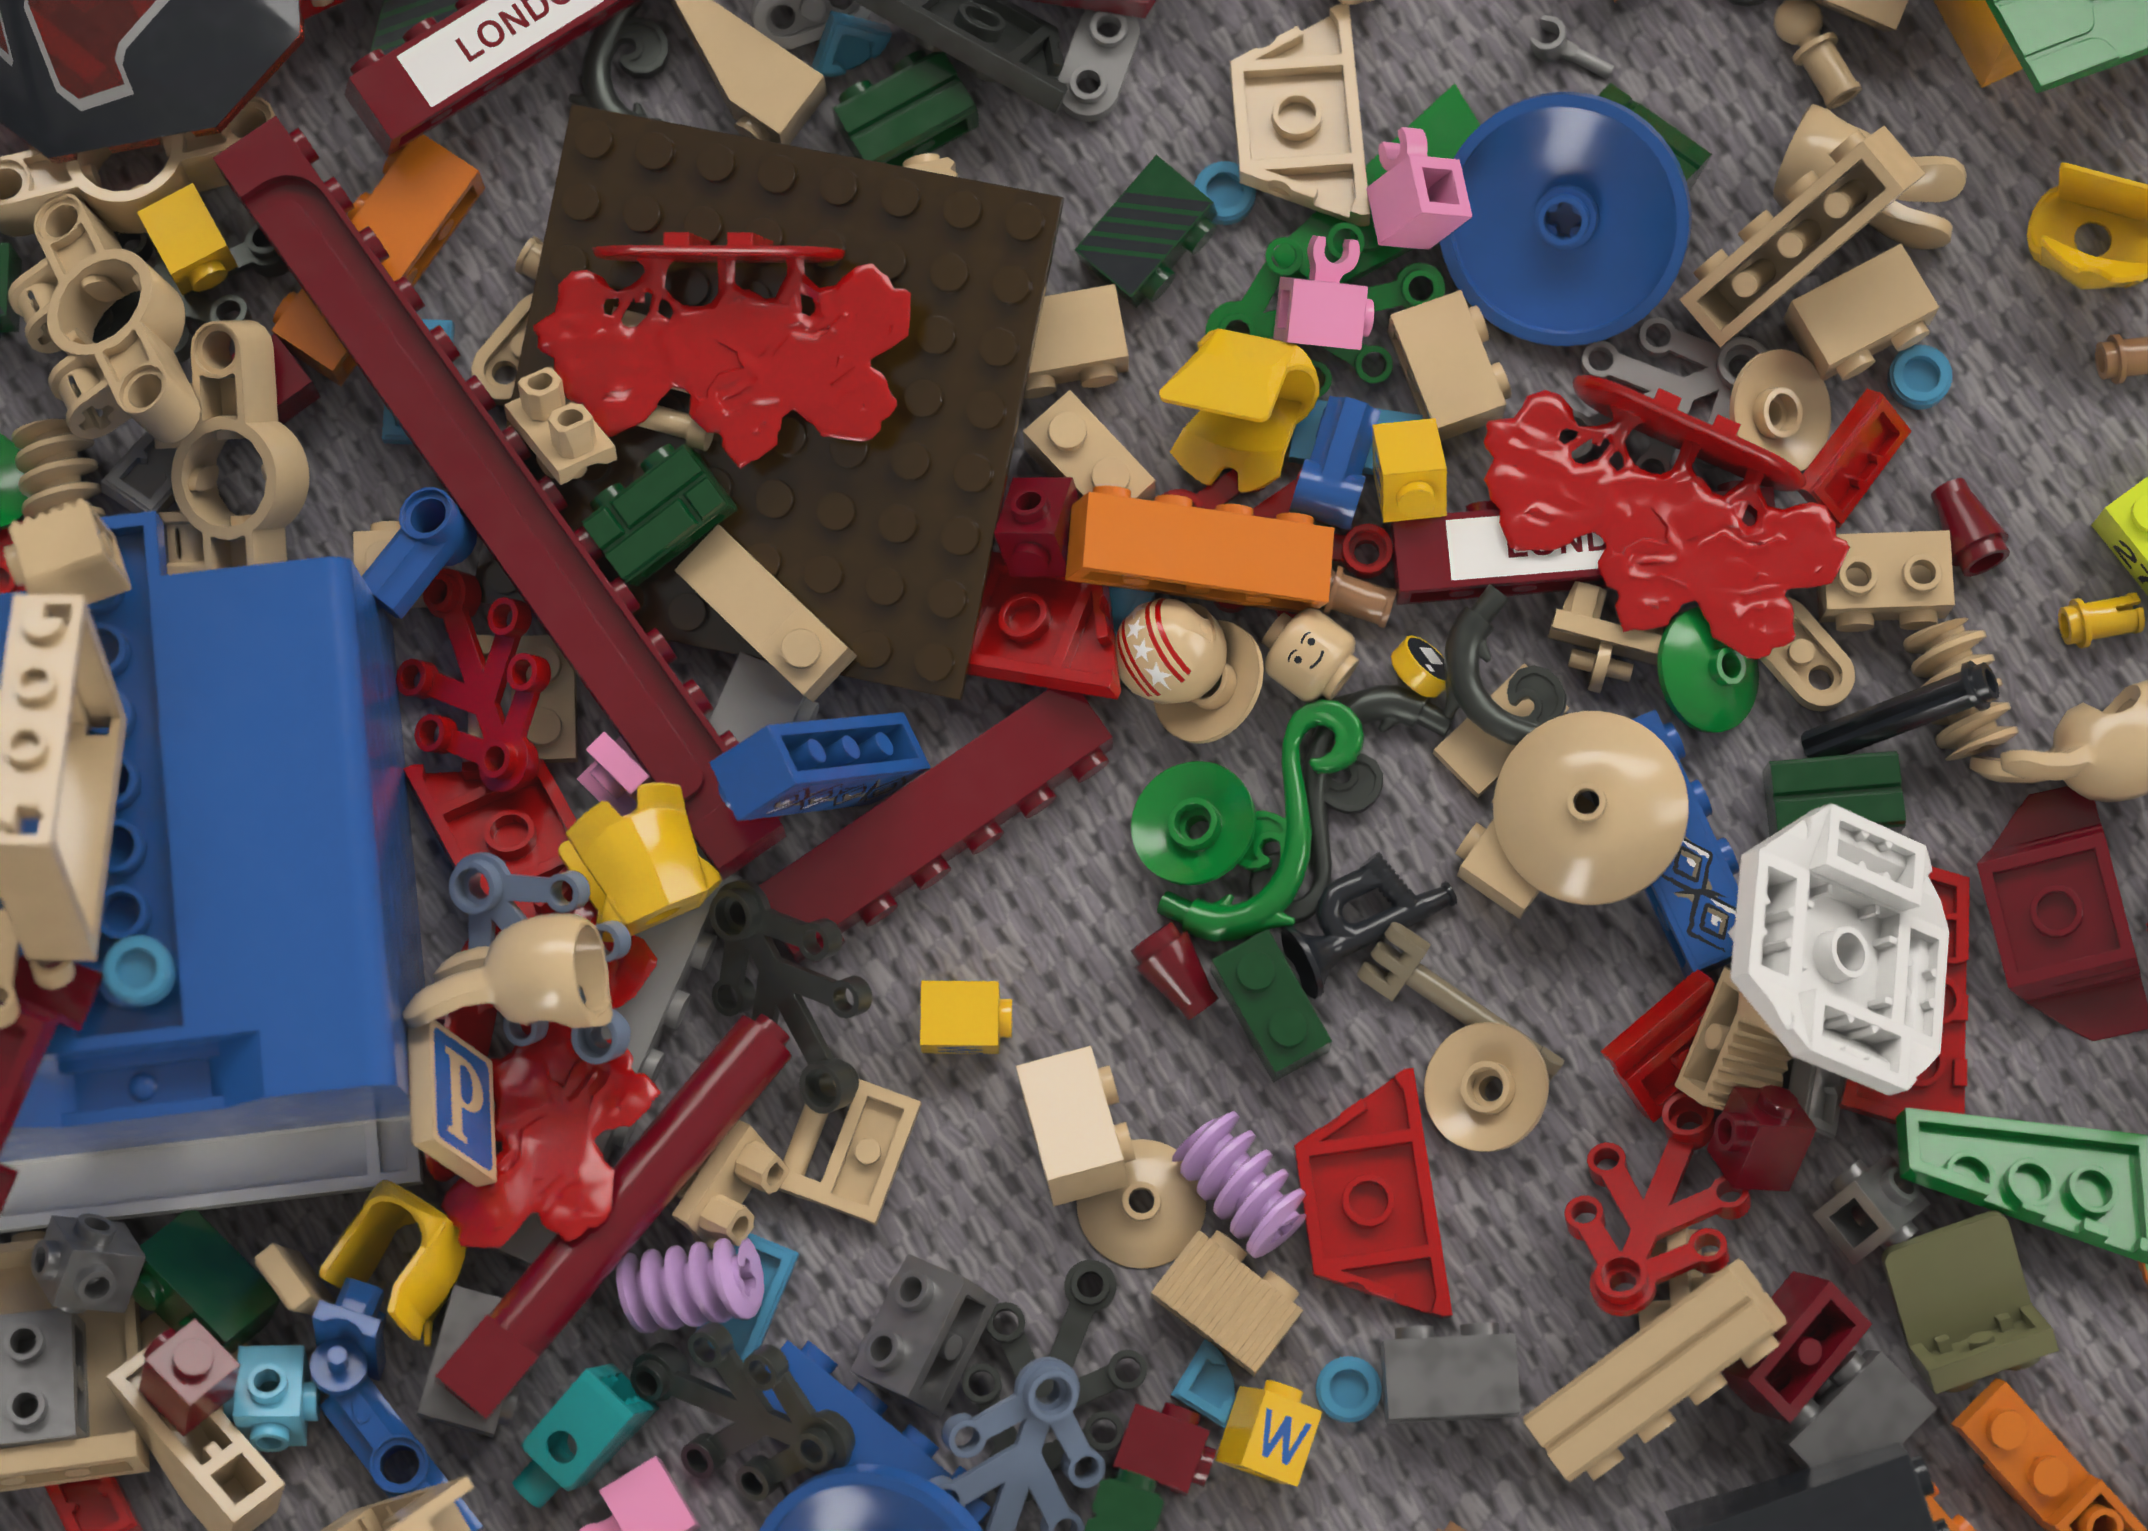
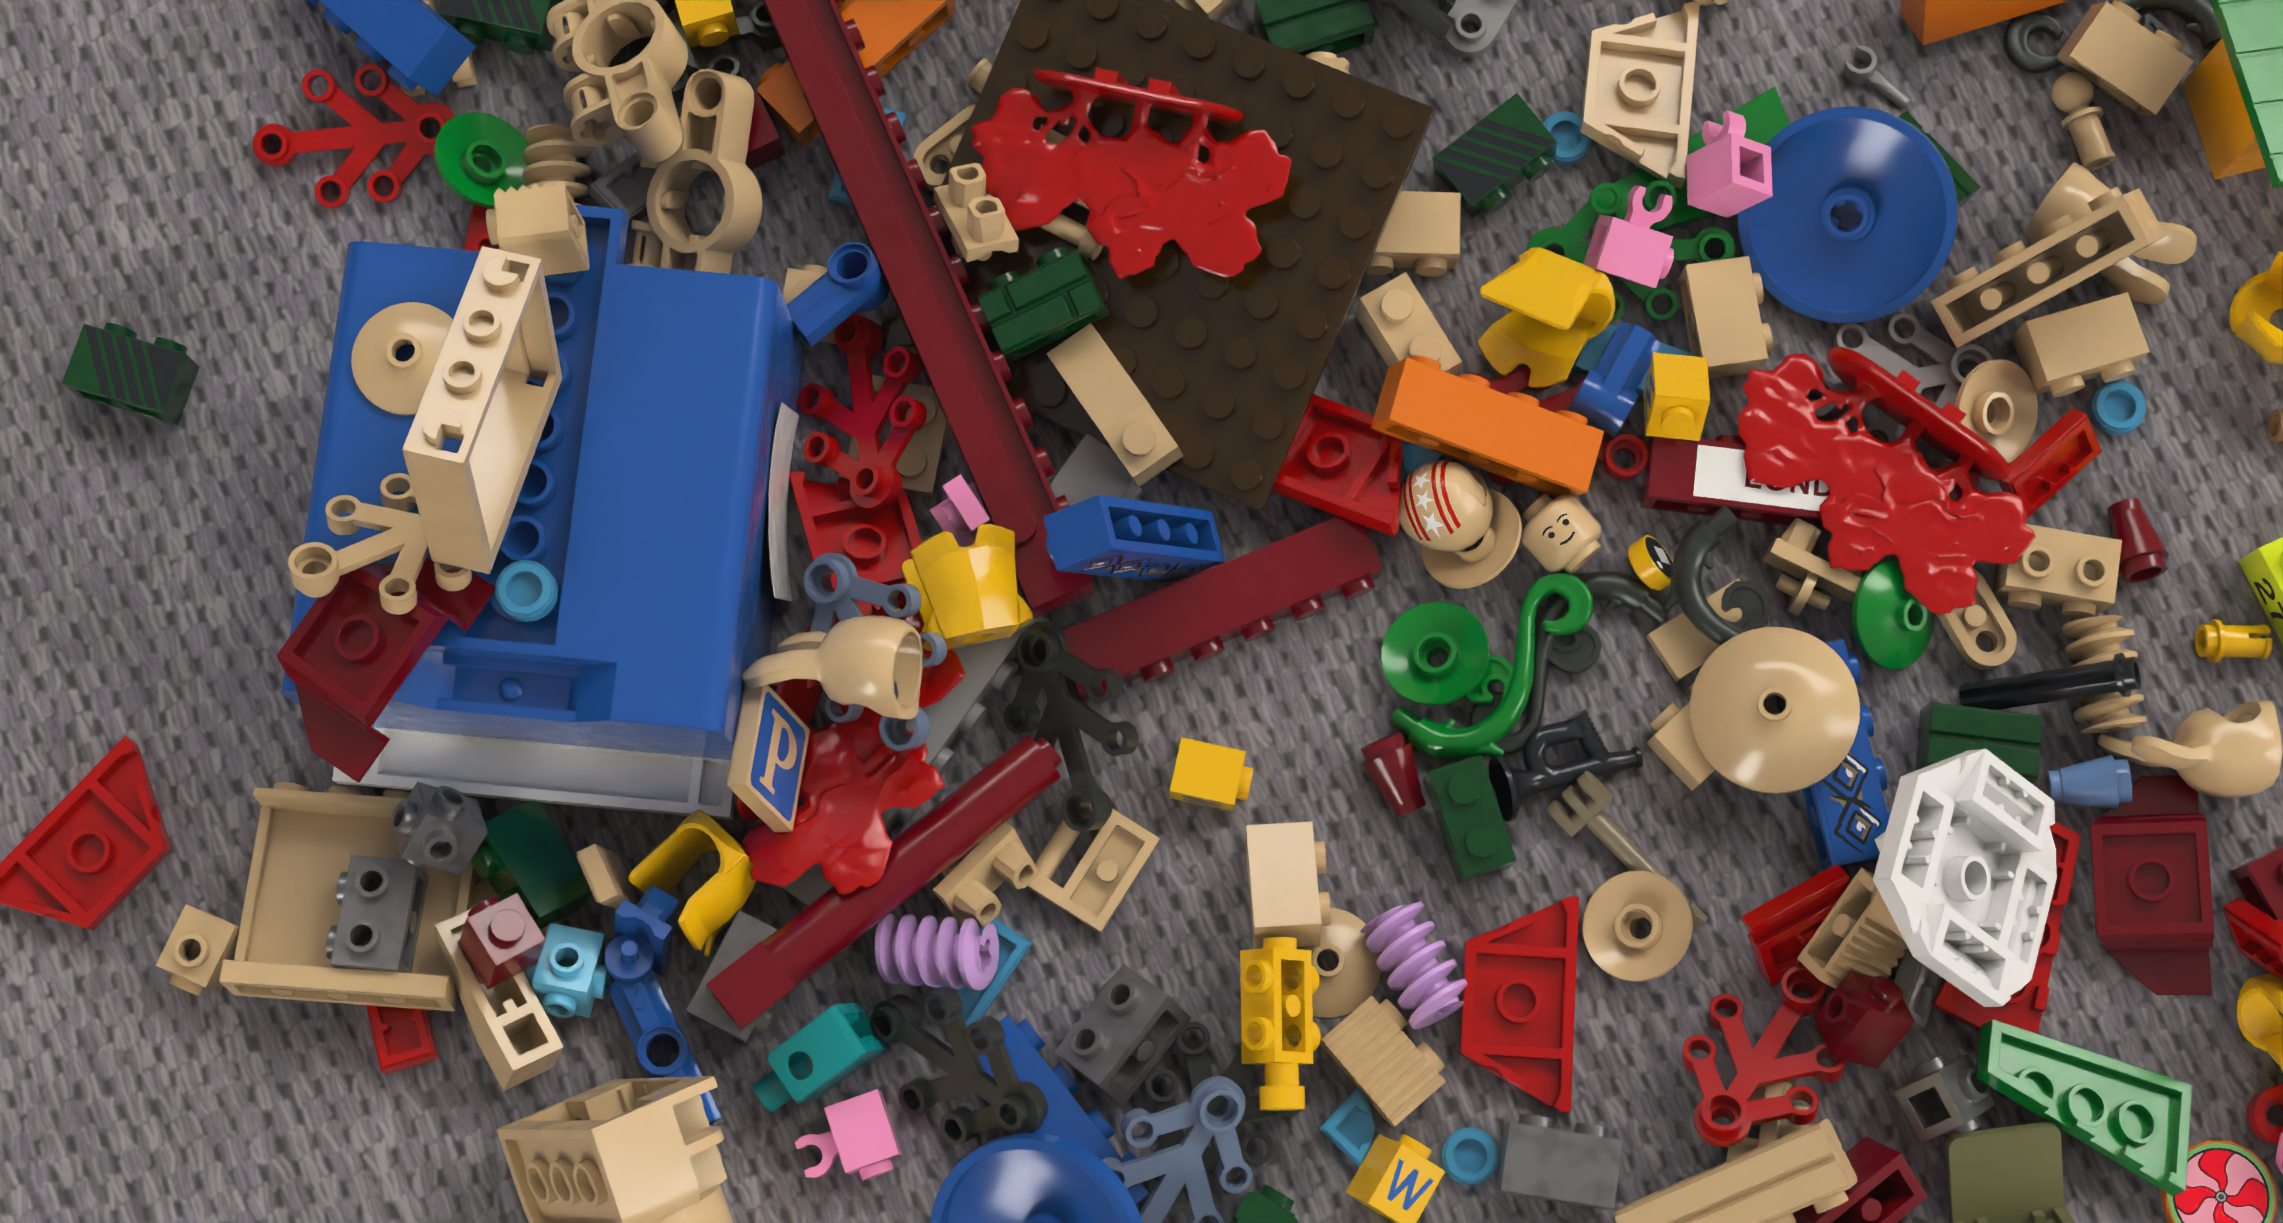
camera: 10 degrees right, 0 degrees up
(399, 805) = (778, 497): none -> white sticker
(1036, 526) = (1355, 379): dark red brick -> none
(1097, 1278) = (1274, 1015): none -> yellow brick
(1166, 1447) = (1307, 1173): dark red brick -> none
(1359, 598) = (1612, 496): medium nougat pin -> none
(1971, 815) = (2092, 783): none -> medium blue cone

